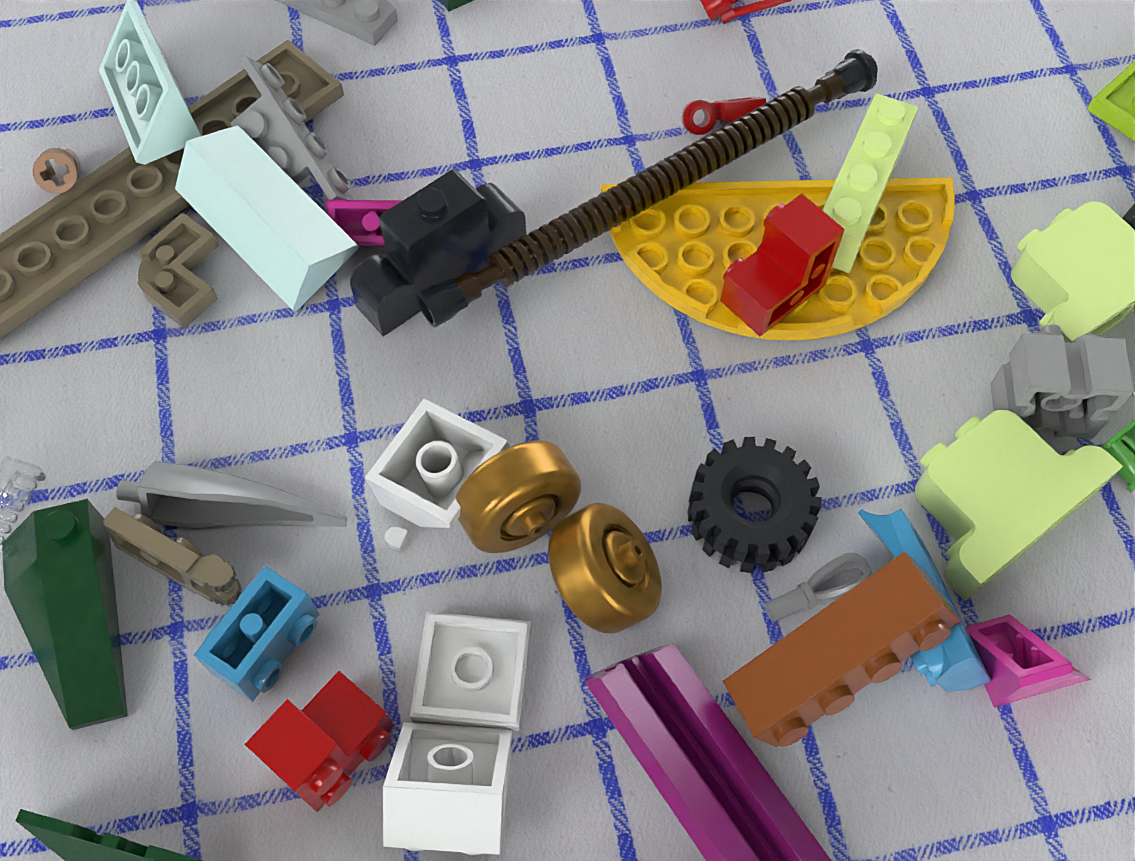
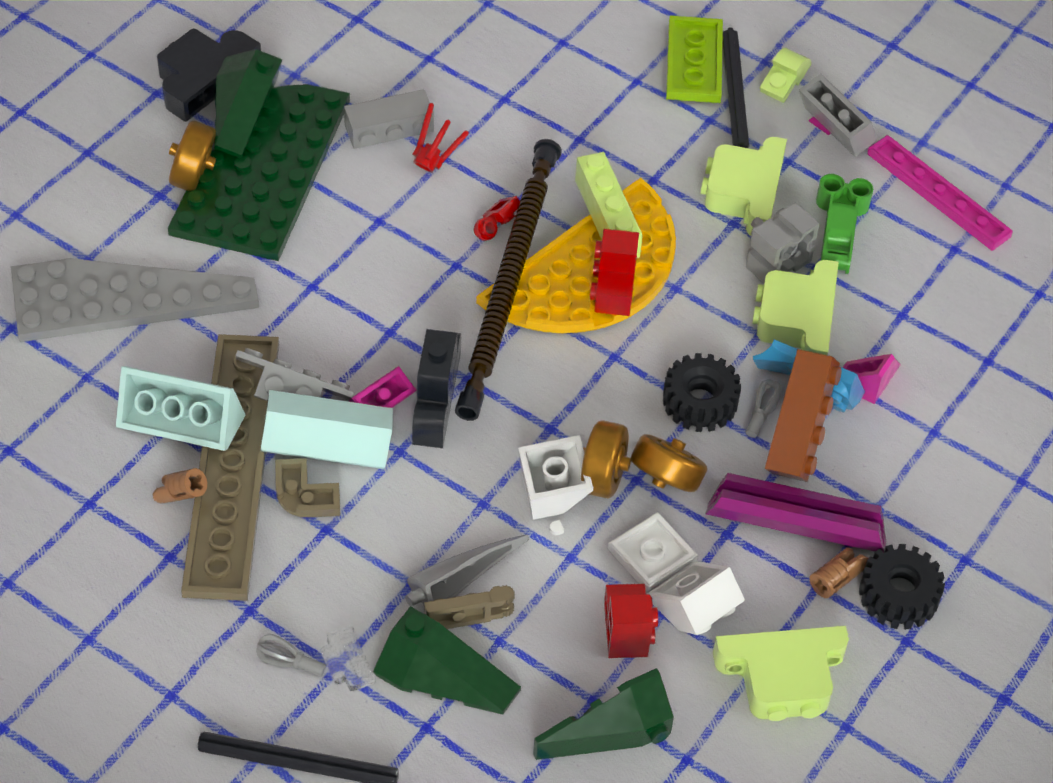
camera: 45 degrees left, 10 degrees down
(259, 634) = (551, 600): dark azure brick -> none

